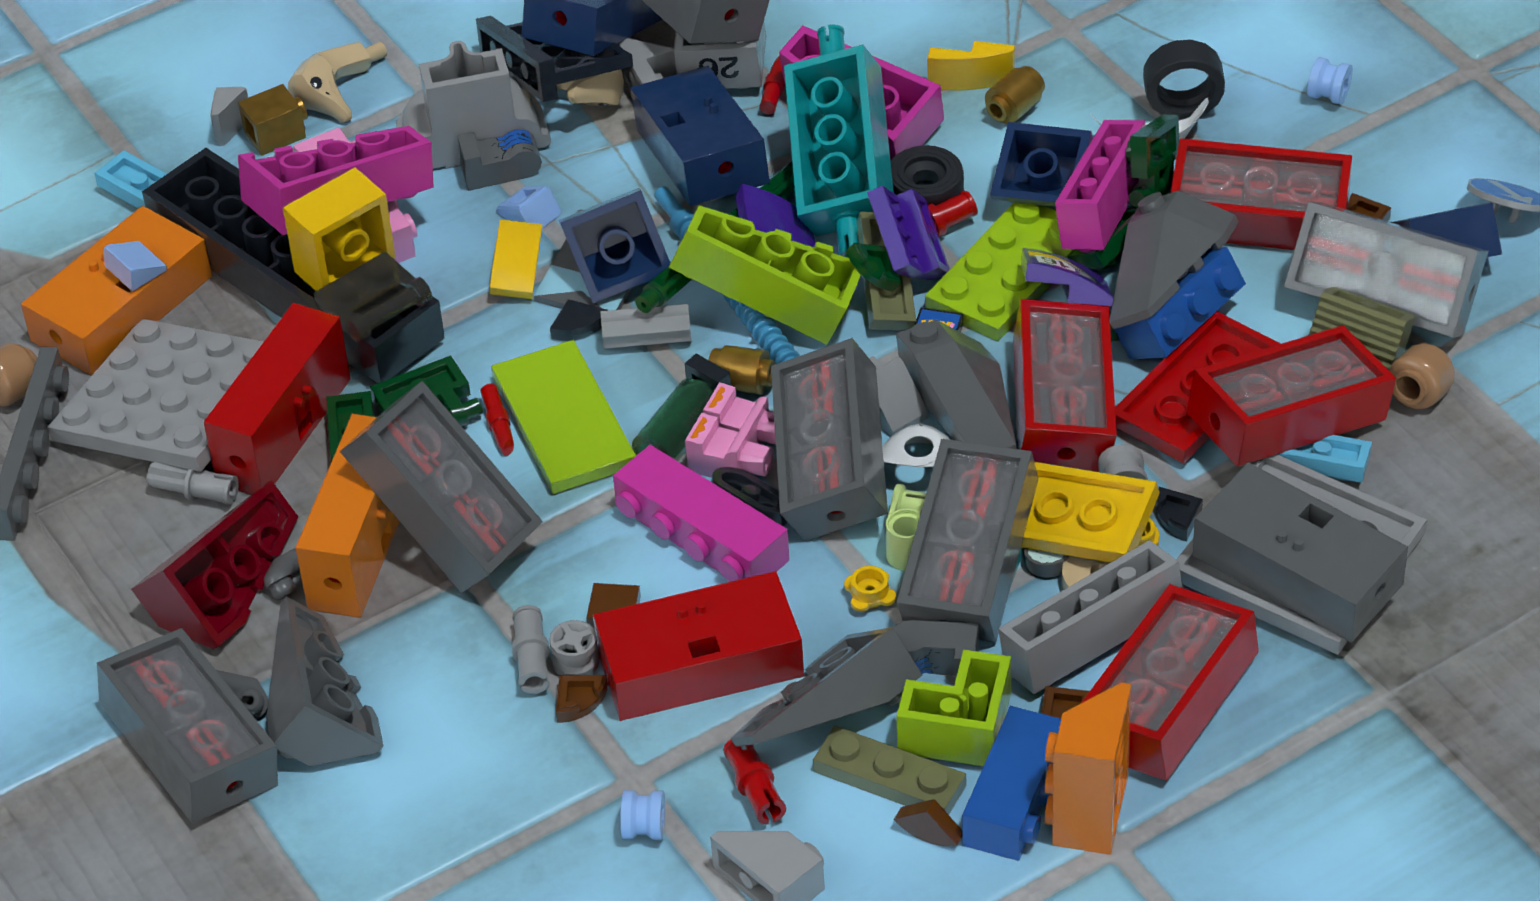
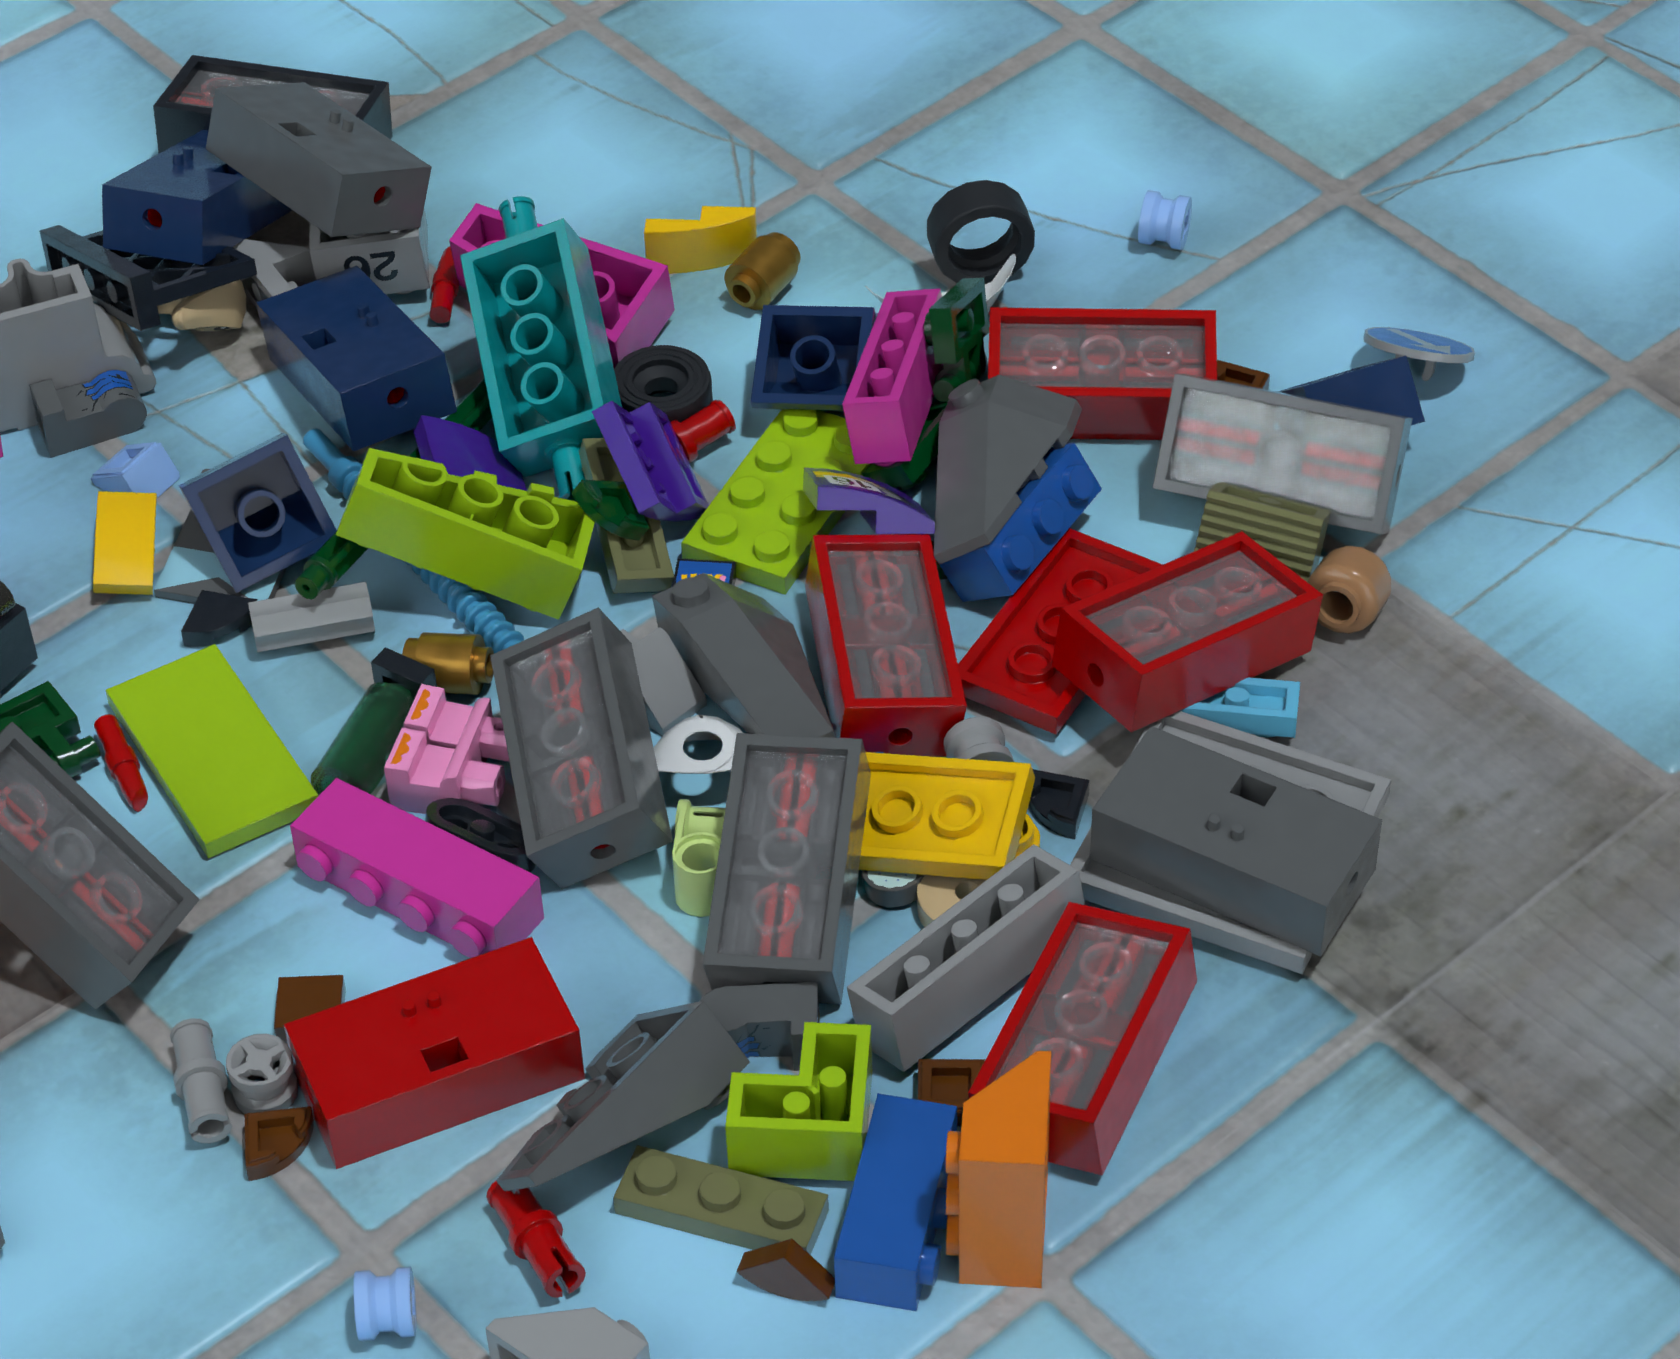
camera: 10 degrees left, 0 degrees up
(869, 588) = (659, 947): yellow plate -> none

